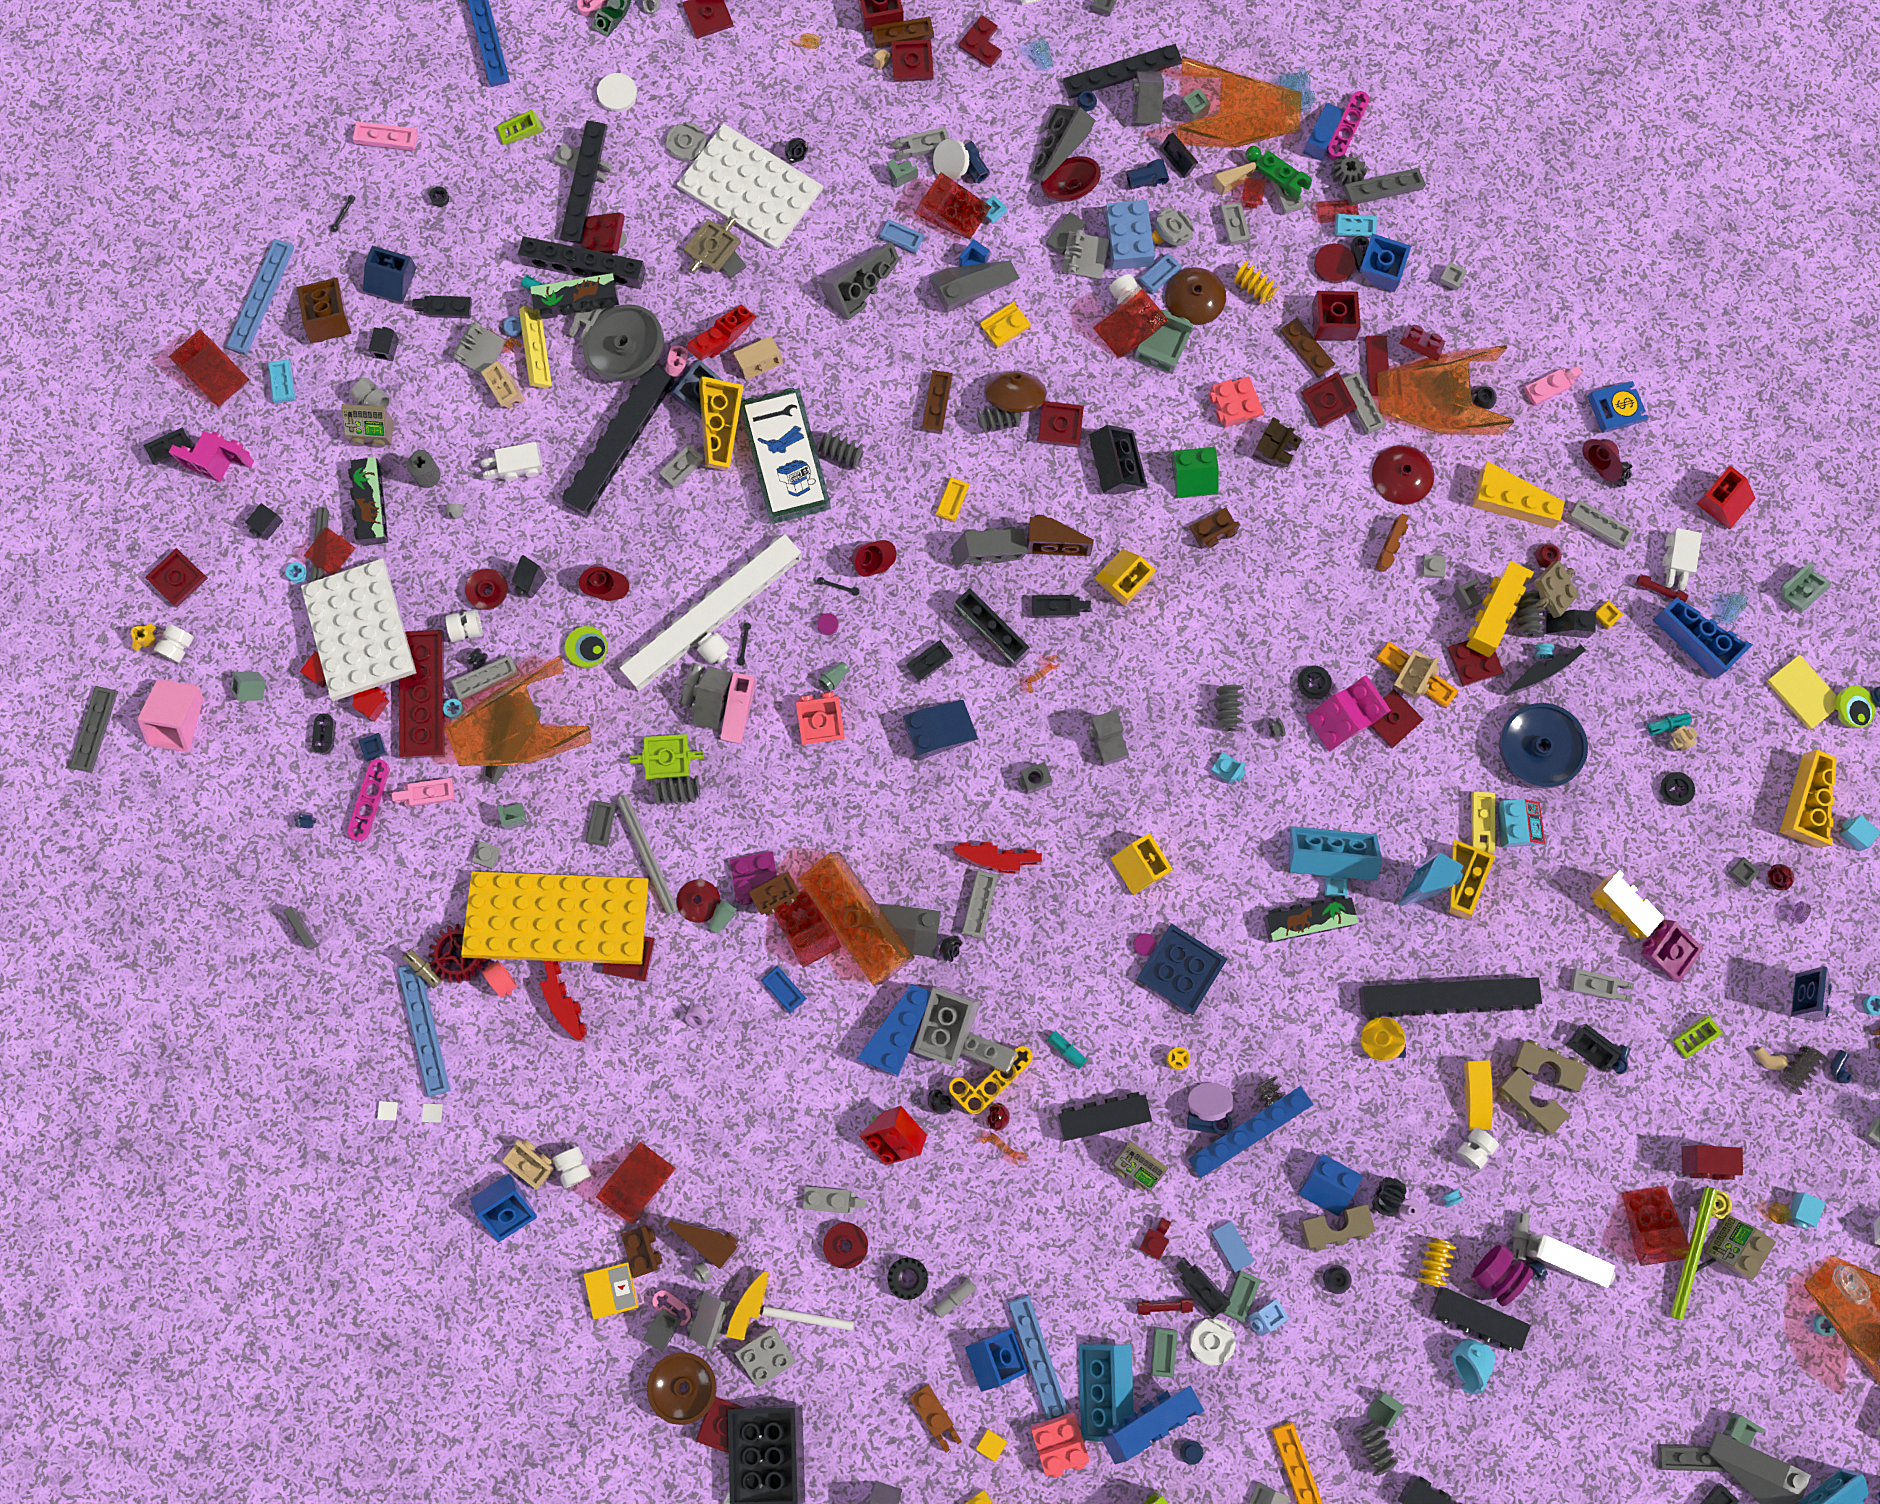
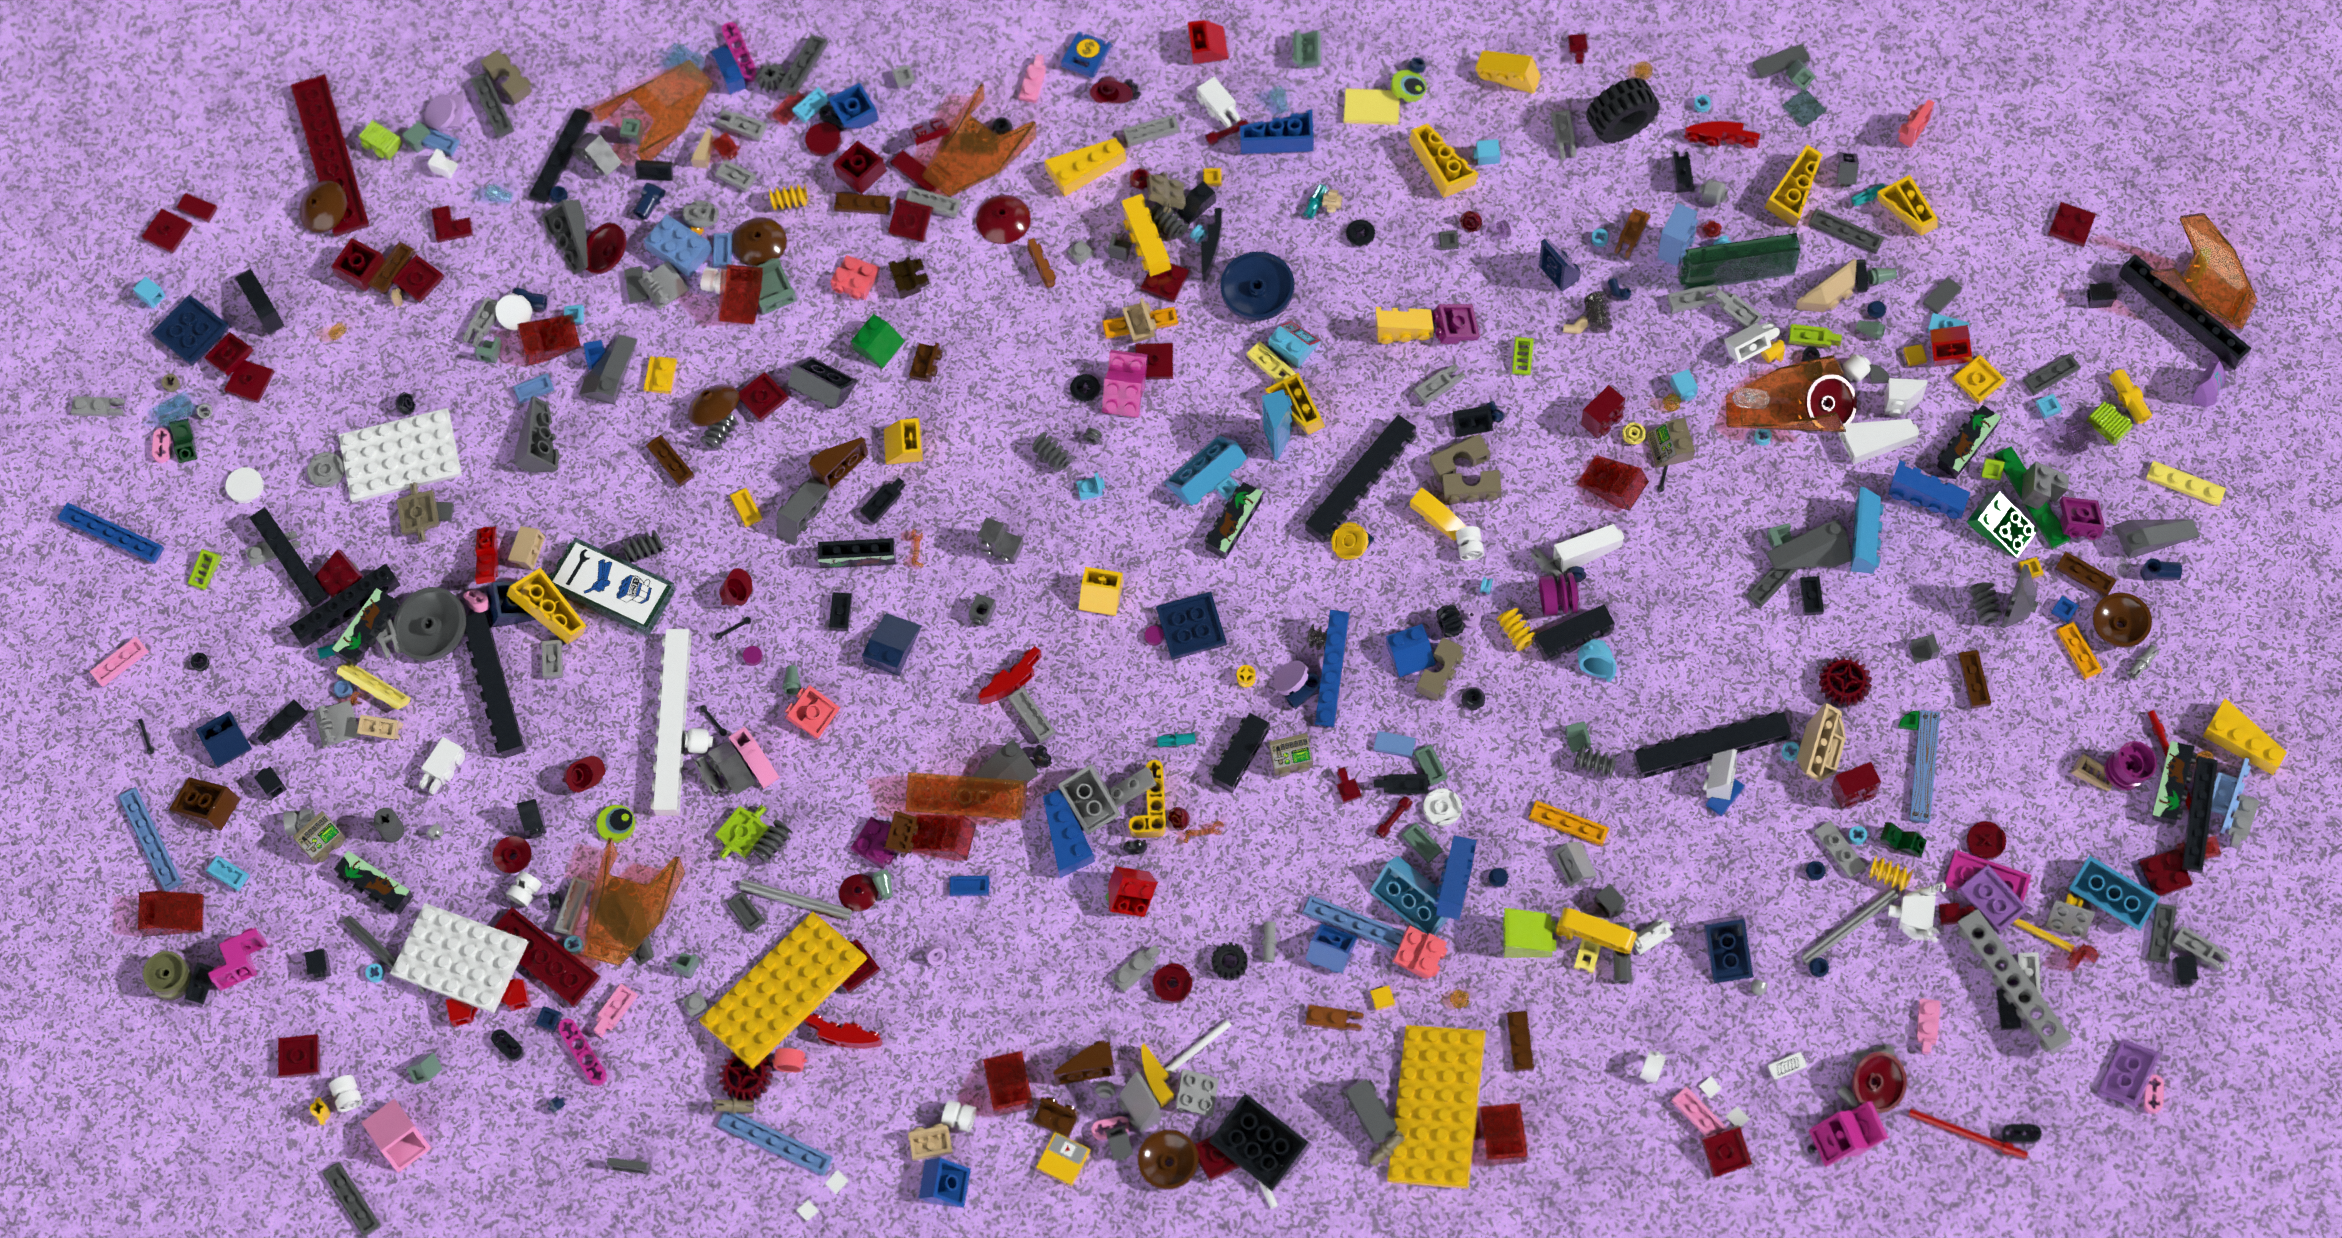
camera: 40 degrees left, 10 degrees down
(154, 413) = (167, 975): none -> olive wheel
(329, 551) = (383, 937): clear red piece -> none
(1268, 1318) = (1457, 760): light blue bracket -> none
(1279, 171) = (729, 118): green plate -> none
(1693, 1255) = (1650, 473): lime axle -> none

